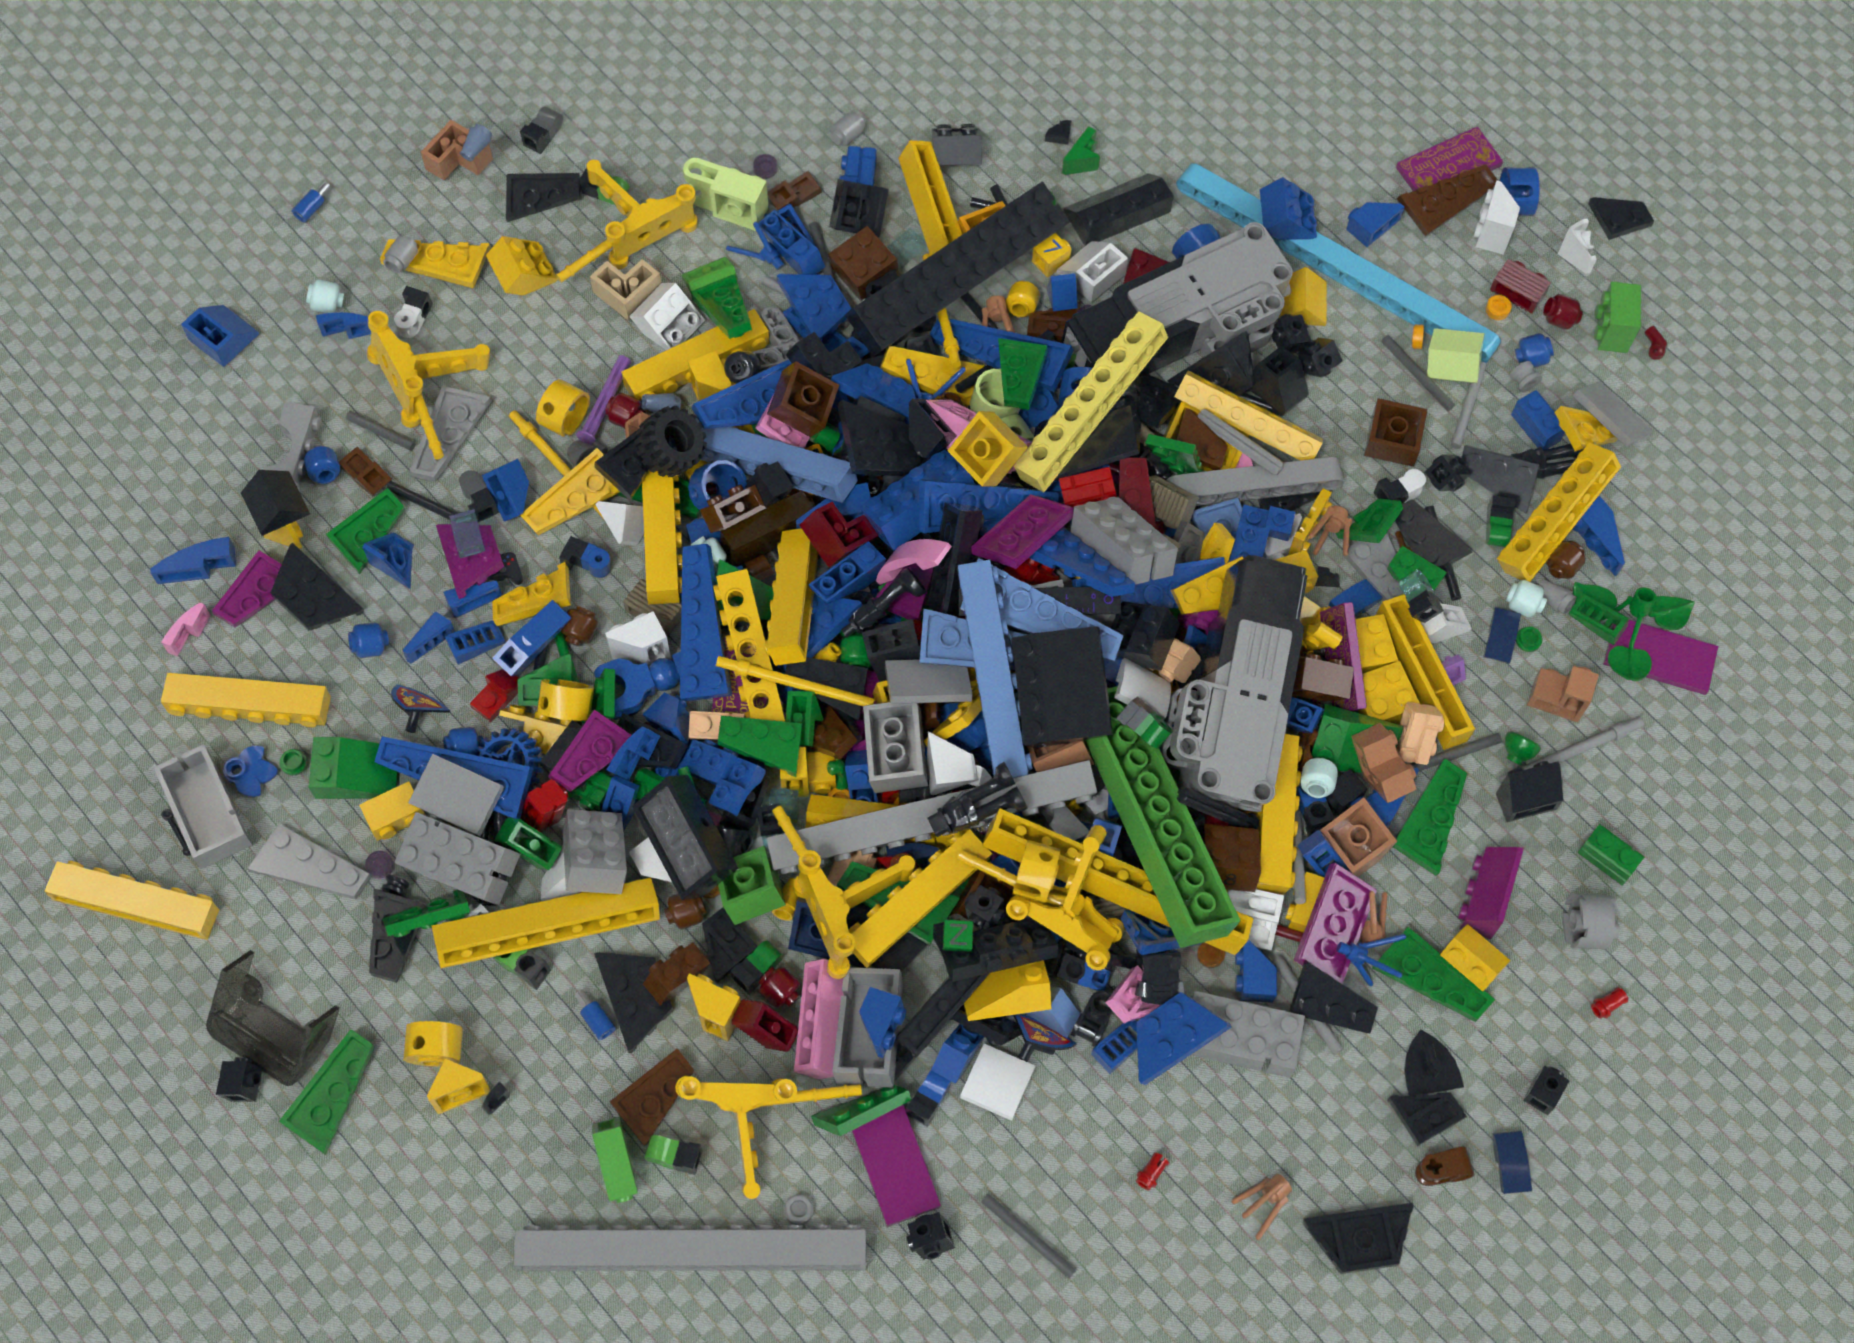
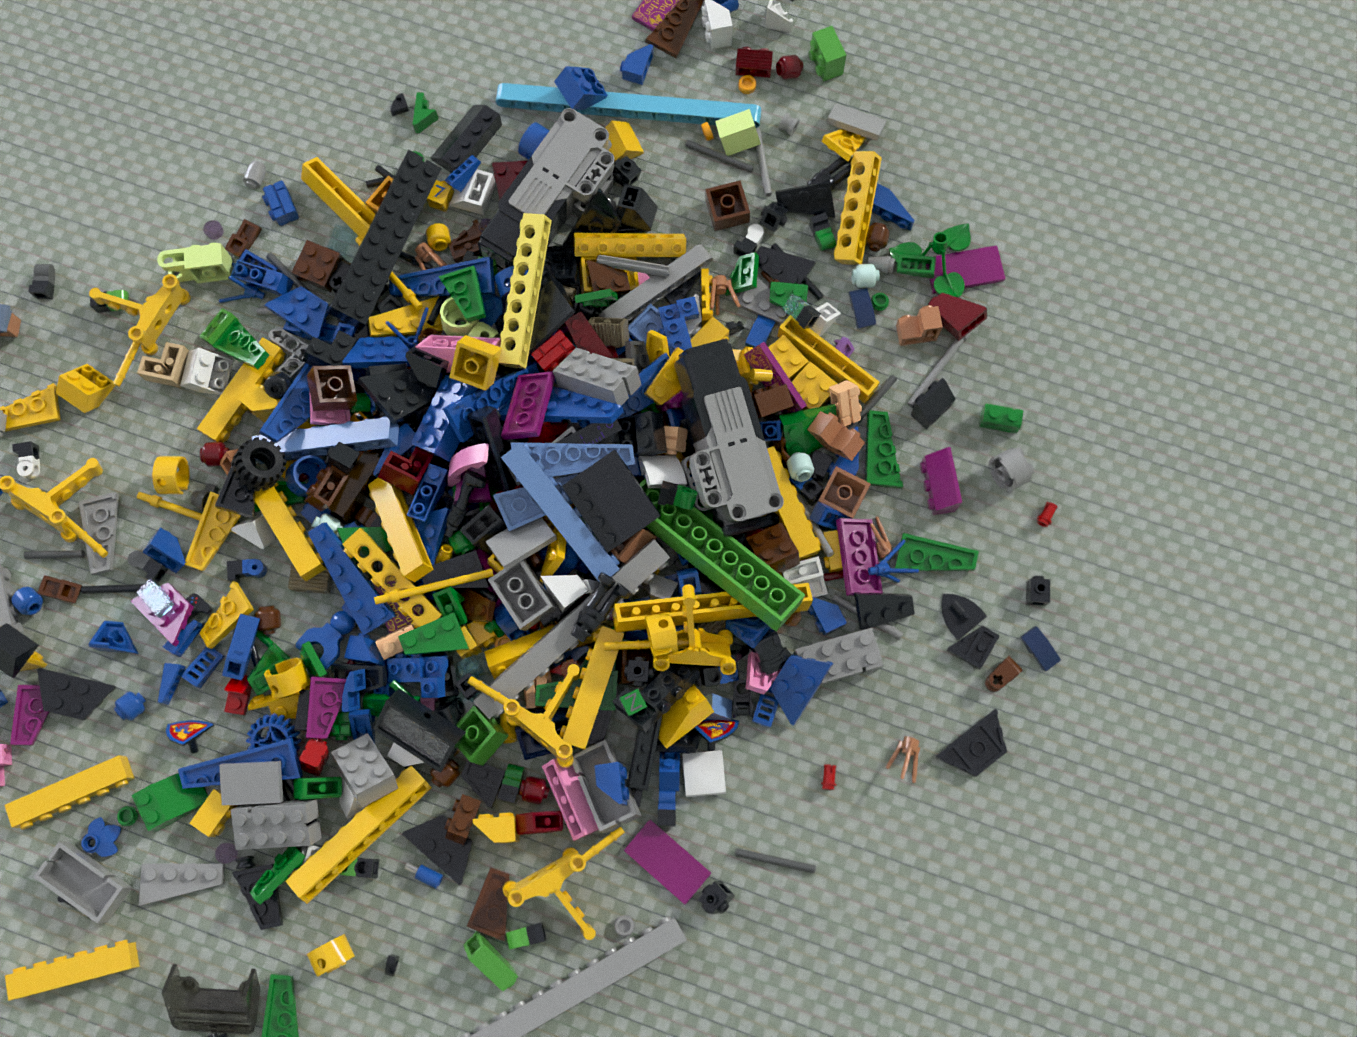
camera: 25 degrees left, 10 degrees up
(364, 525) = (83, 627): green wing -> none
(456, 1086) = (360, 975): yellow slope -> none
(463, 740) = (235, 741): blue head -> none
(539, 192) = (67, 328): black wing -> none
(598, 412) = (195, 445): medium lavender axle -> none
(638, 640) = (313, 610): white slope -> none
(658, 401) = (237, 435): sand blue cone -> none
(848, 206) = (293, 228): black brick -> none
(860, 1111) = (627, 845): green wing -> none
(957, 145) = (335, 149): black slope -> none
(1062, 292) = (462, 219): blue slope -> none
(1091, 242) = (460, 177): none -> blue slope
(1319, 357) = (652, 178): black brick -> none
(1475, 957) = (954, 530): yellow brick -> none
(1520, 748) = (911, 377): green brick -> none
(1535, 349) = (785, 103): blue head -> none
(1538, 420) = (812, 150): blue brick -> none
(1622, 703) = (959, 315): none -> dark red slope
(1658, 343) = (860, 59): dark red arm -> none

